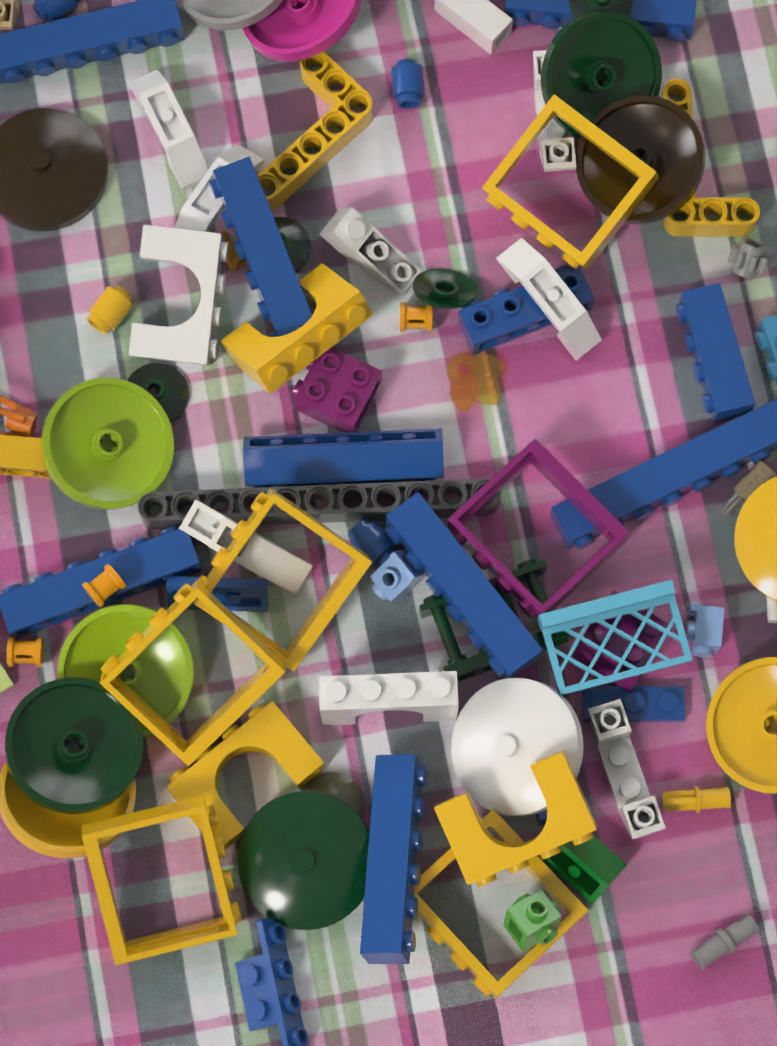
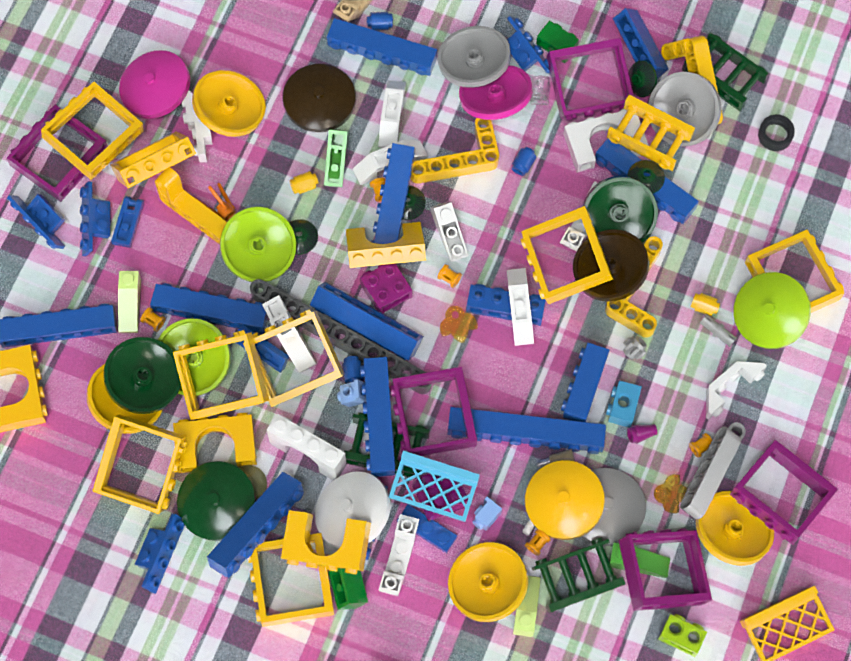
camera: 30 degrees right, 5 degrees down
(104, 585) = (208, 309): light orange bush -> none
(126, 234) = (336, 157): none -> slope
(193, 339) = (334, 220): white arch -> none
(444, 288) = (472, 270): dark green dish -> none
(532, 920) = (301, 596): bright green brick -> none
(696, 799) = (425, 593): yellow axle -> none

